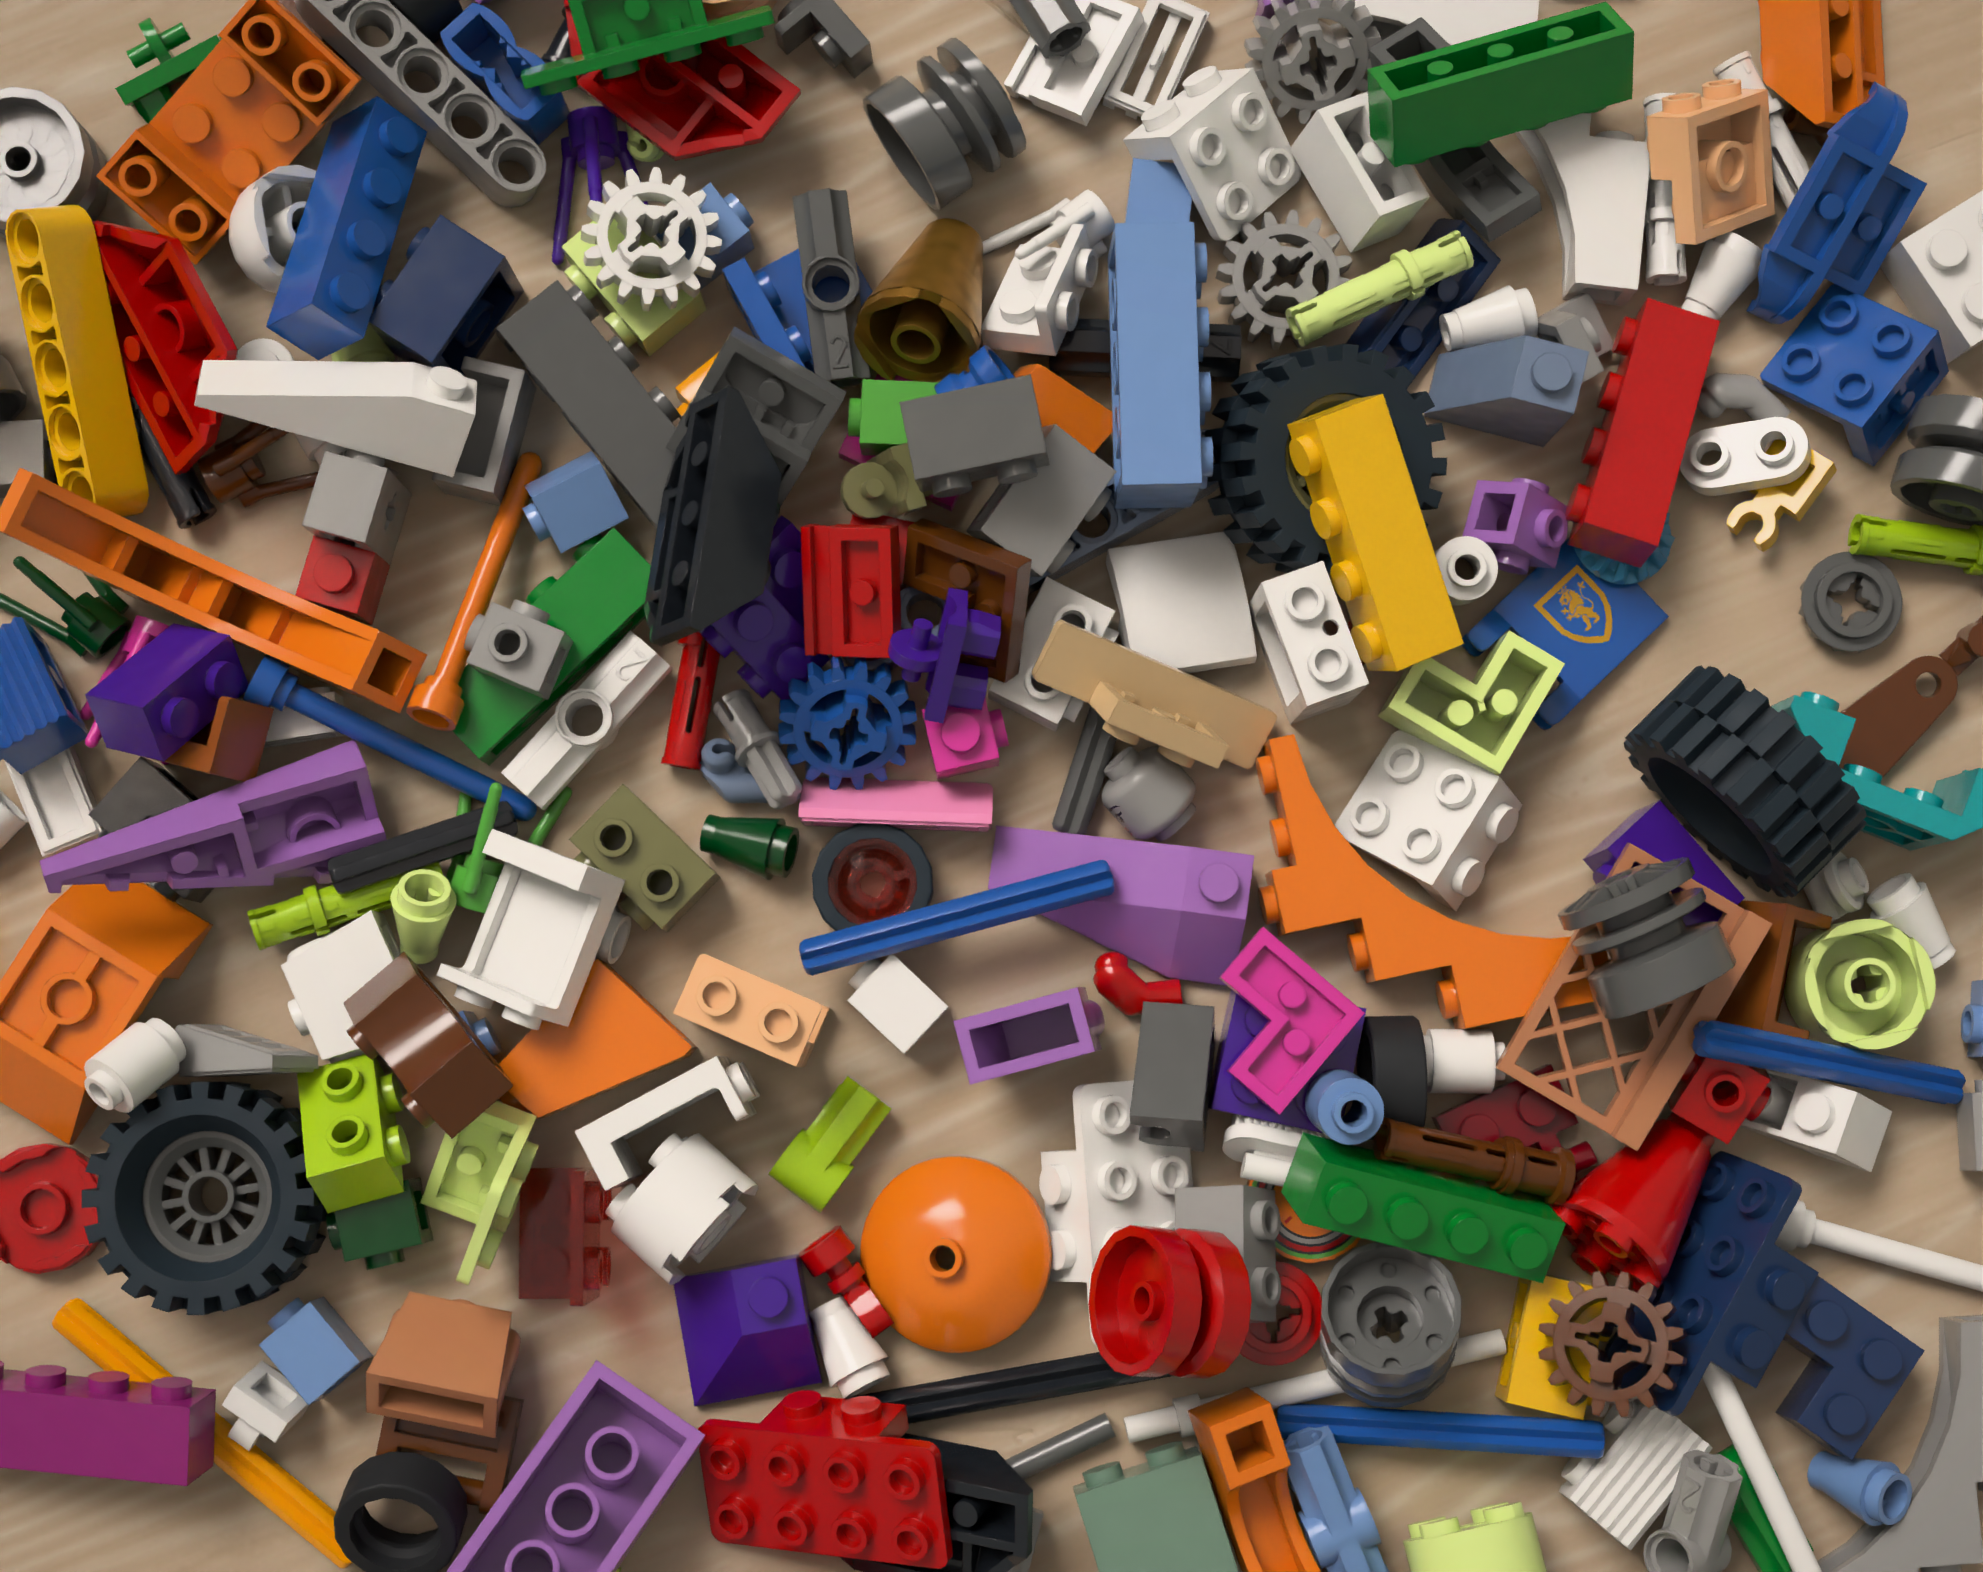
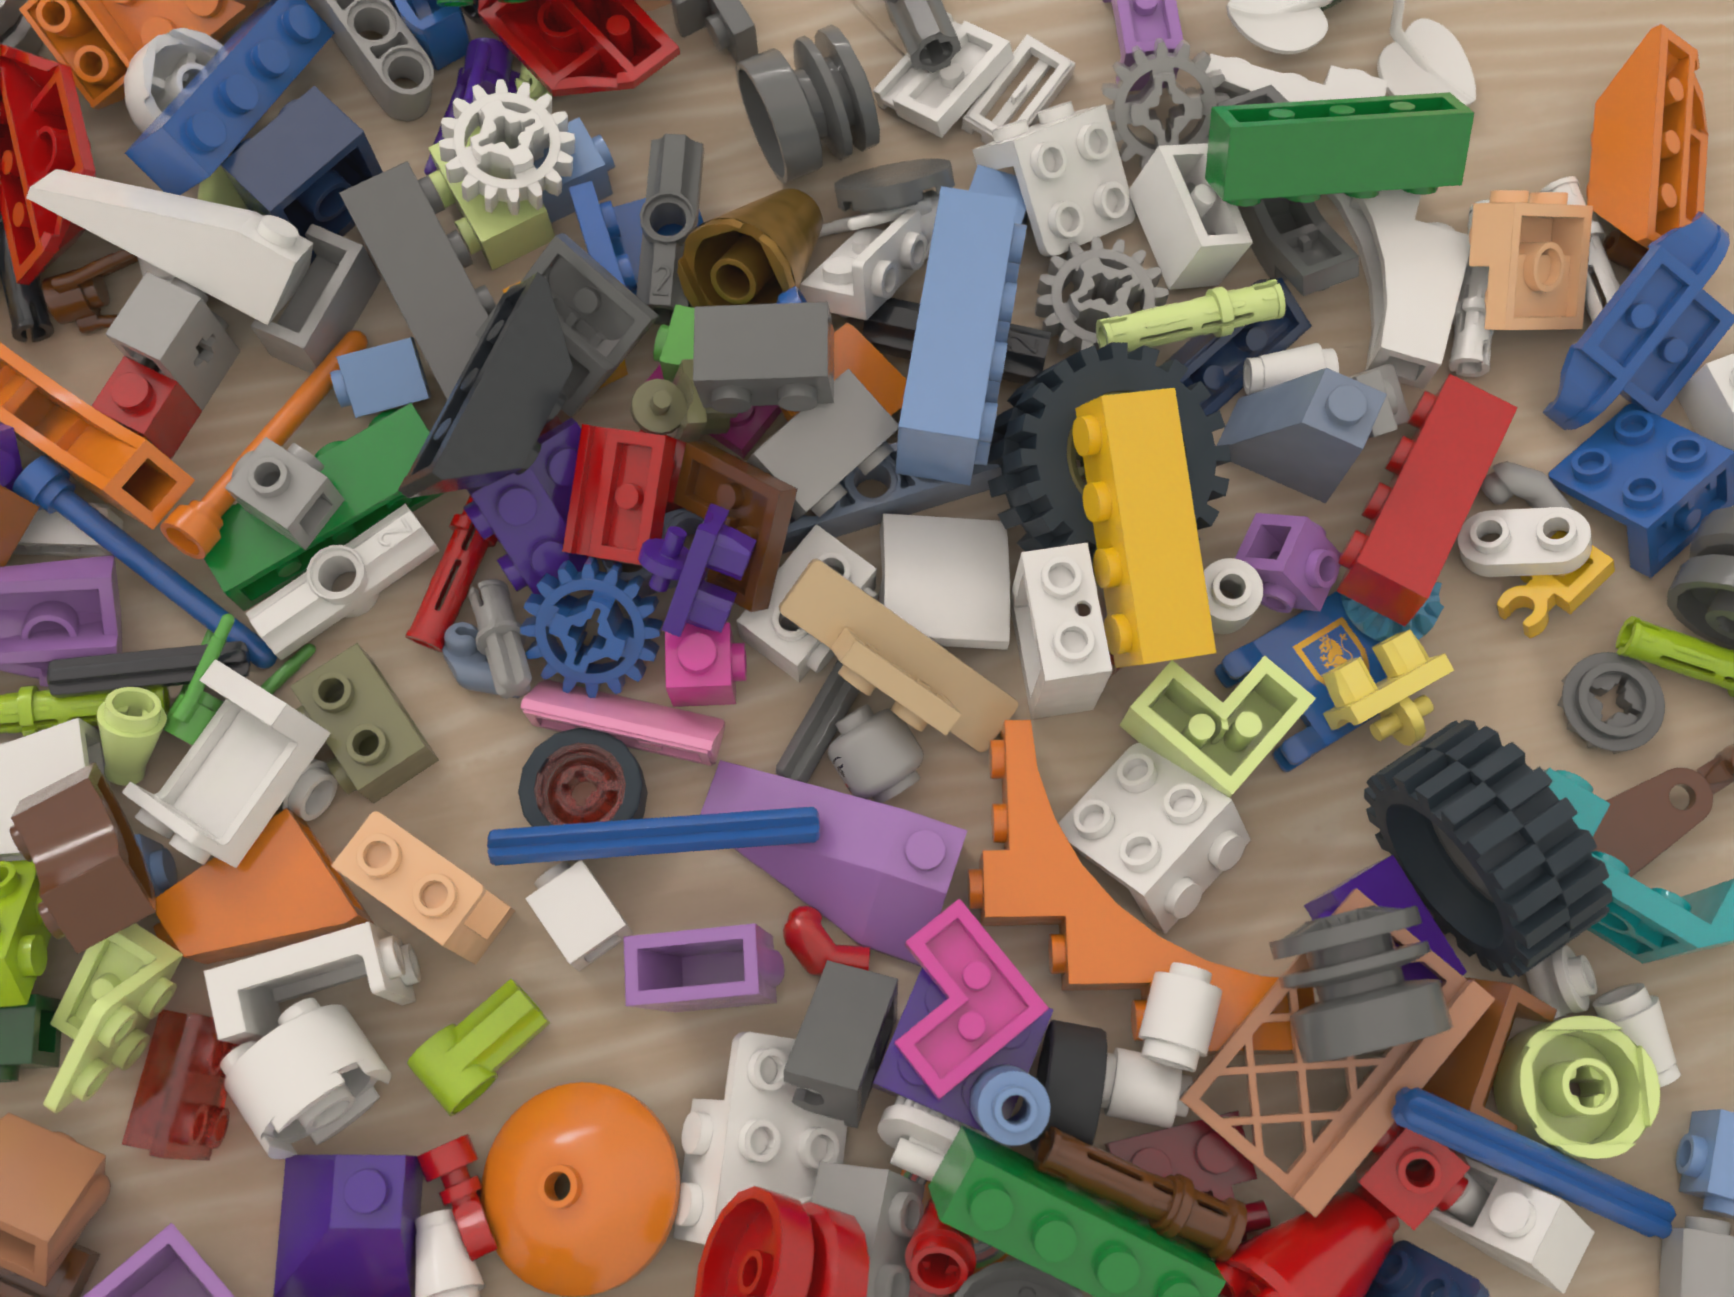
camera: 15 degrees right, 10 degrees down
(753, 844) = (477, 731): dark green cone -> none
(1051, 195) = (892, 185): none -> dark grey tile
(1301, 1250) = (939, 1255): none -> red cone
(1485, 993) = (1179, 1016): none -> white brick
(1610, 650) = (1407, 671): none -> light yellow hips
(1722, 274) = (1527, 368): white cone -> none

